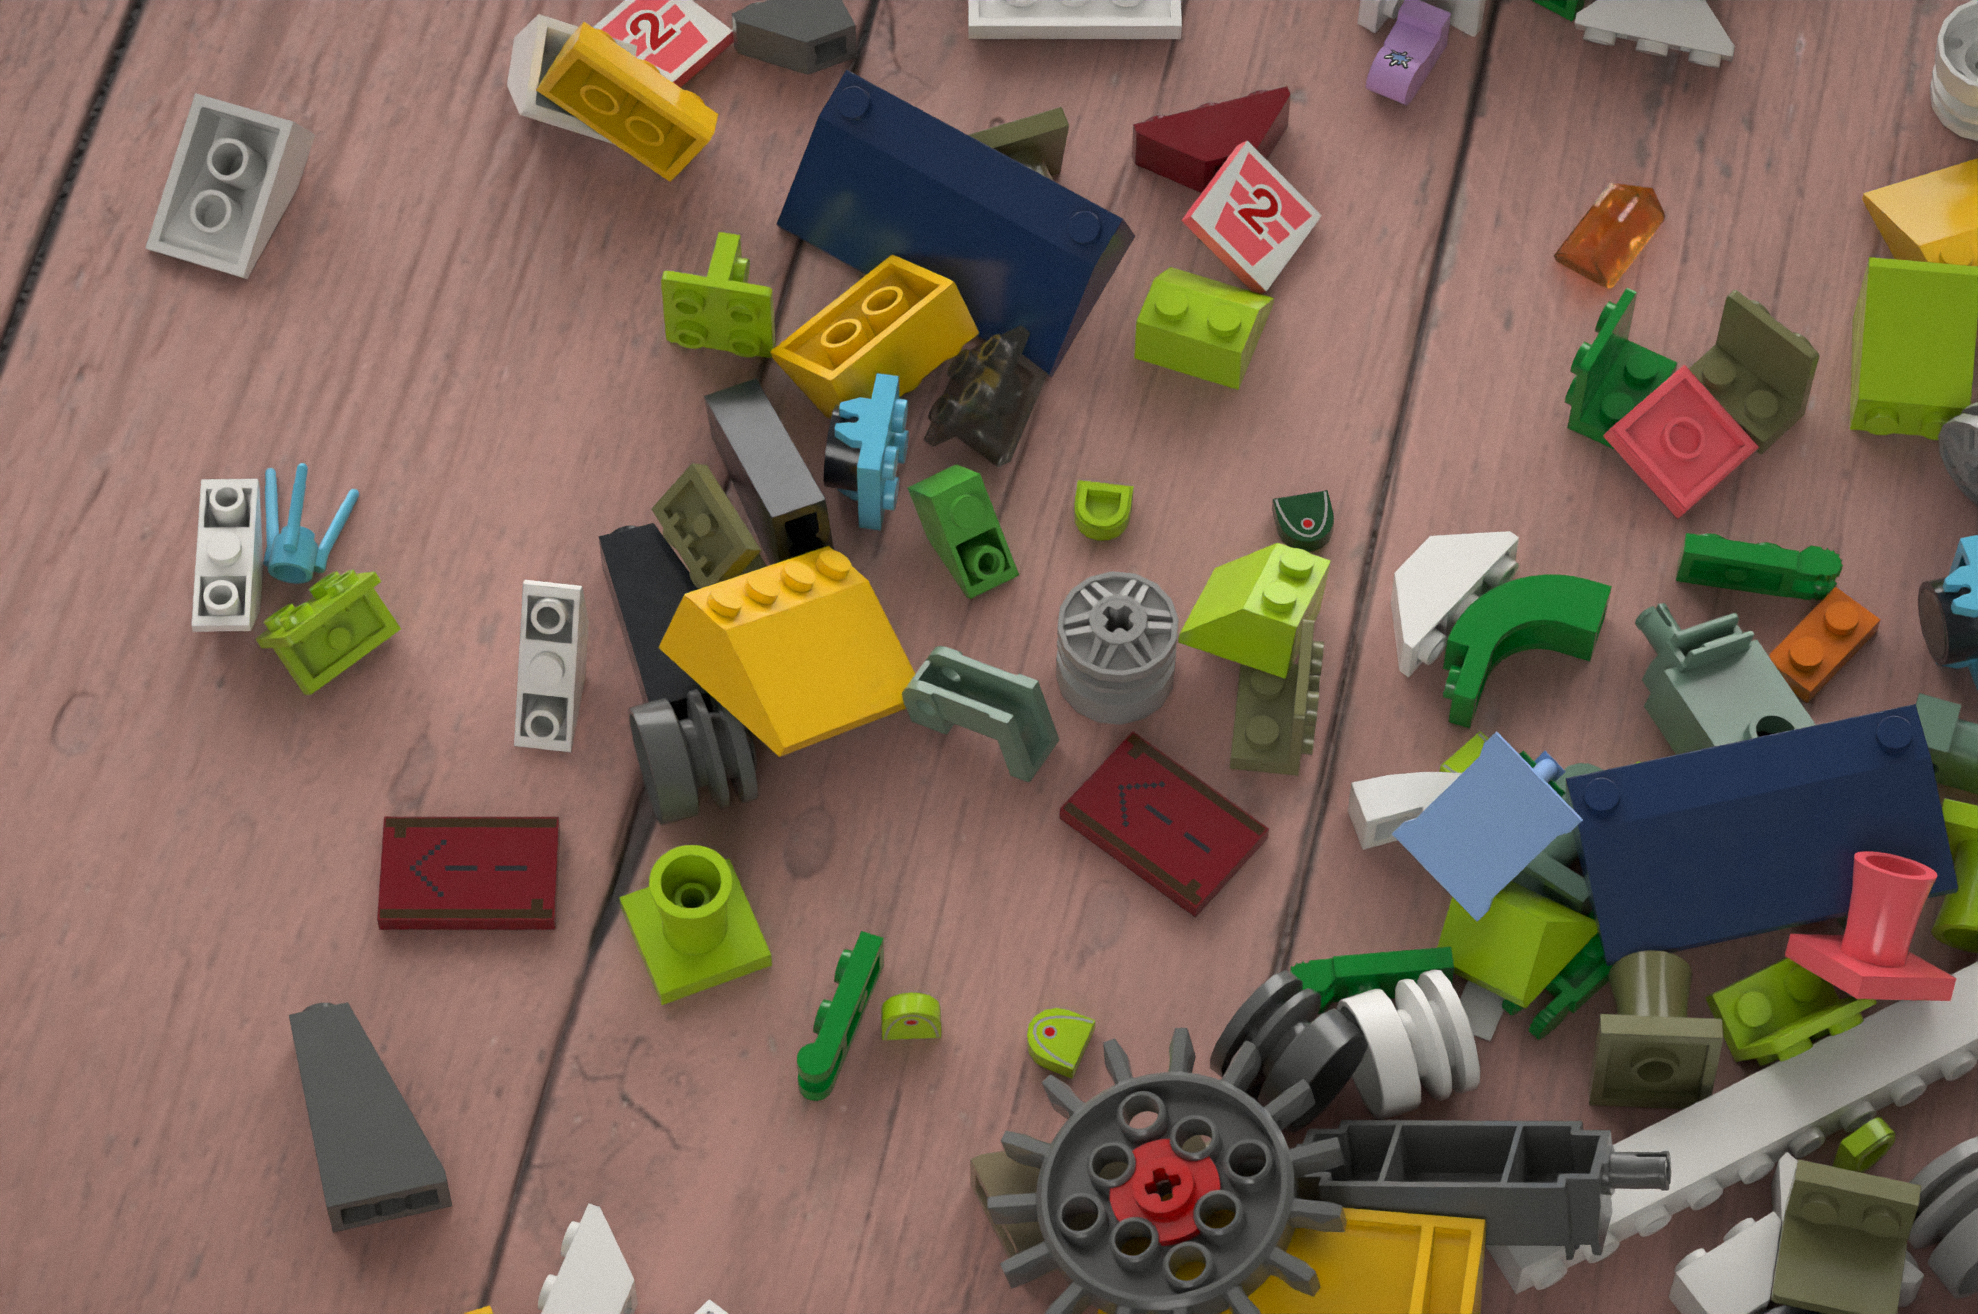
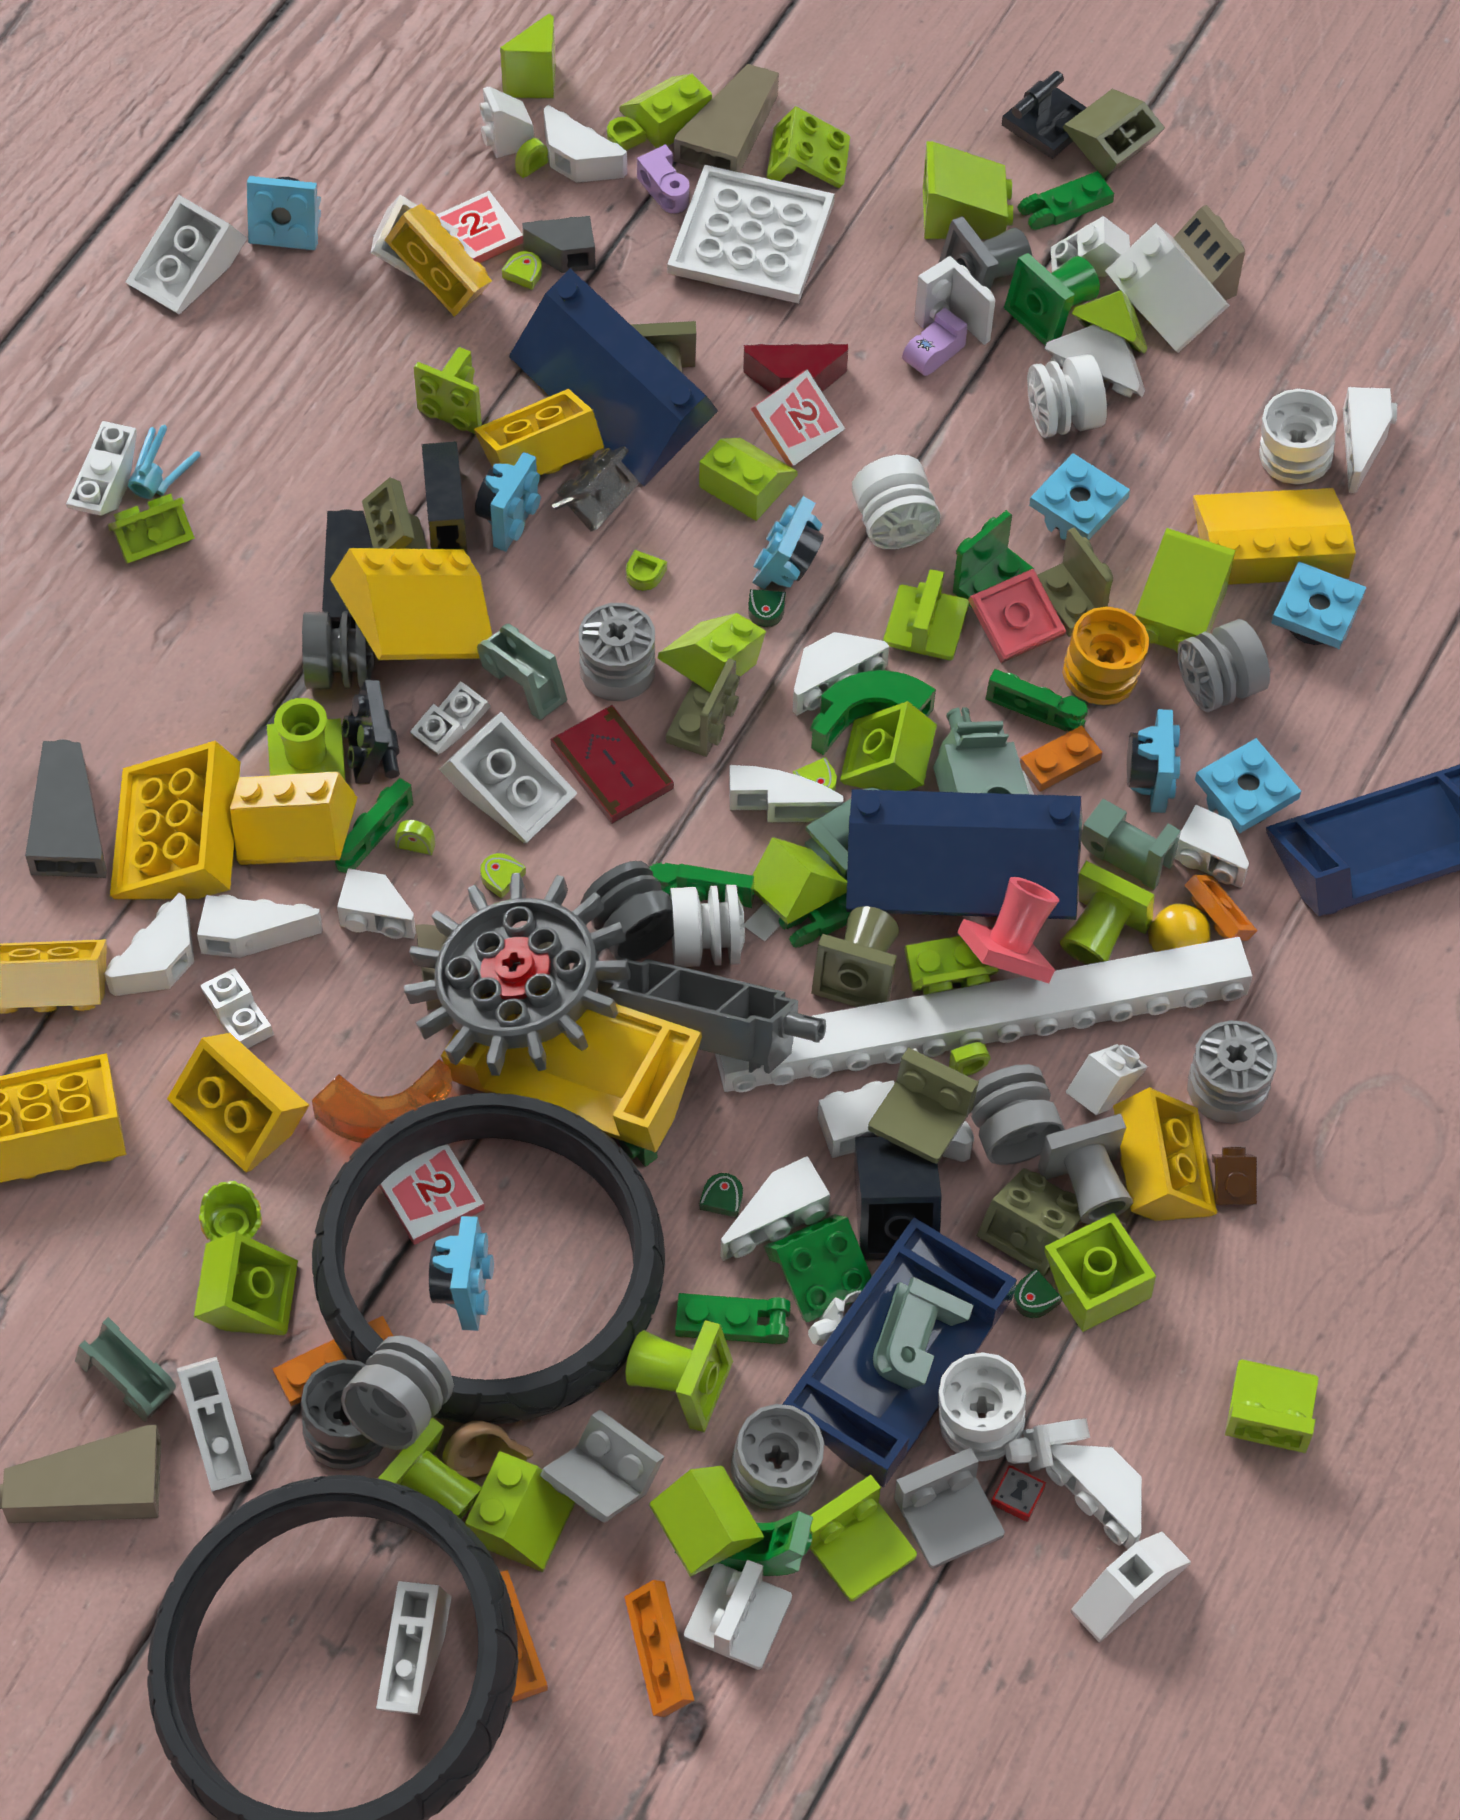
camera: 15 degrees right, 0 degrees up
(360, 82) = (283, 212): none -> medium azure piece
(469, 873) = (184, 689): dark red tile -> none
(538, 1096) = (176, 825): none -> yellow slope
(550, 665) = (273, 578): white slope -> none
(705, 1228) = (246, 927): none -> white slope
(719, 1039) = (291, 817): none -> yellow slope
(751, 83) = (523, 269): none -> lime tile
(789, 874) = (370, 735): none -> black plate
(892, 1142) = (374, 905): none -> white slope
(895, 815) = (451, 720): none -> white slope
(964, 529) = (553, 562): bright green slope -> none
(1019, 887) = (508, 779): none -> white slope
(1314, 420) = (790, 547): none -> medium azure piece
(1447, 312) = (895, 502): none -> white wheel
(1489, 823) = (797, 804): light blue piece -> none
(1549, 480) = (926, 619): none -> lime bracket
(1572, 695) = (889, 749): none -> lime slope
(1612, 233) = (1017, 484): clear orange slope -> none
(1637, 88) = (1067, 395): none -> white wheel
(1708, 241) = (1078, 498): none -> medium azure piece
(1839, 472) = (1105, 655): none -> light orange wheel

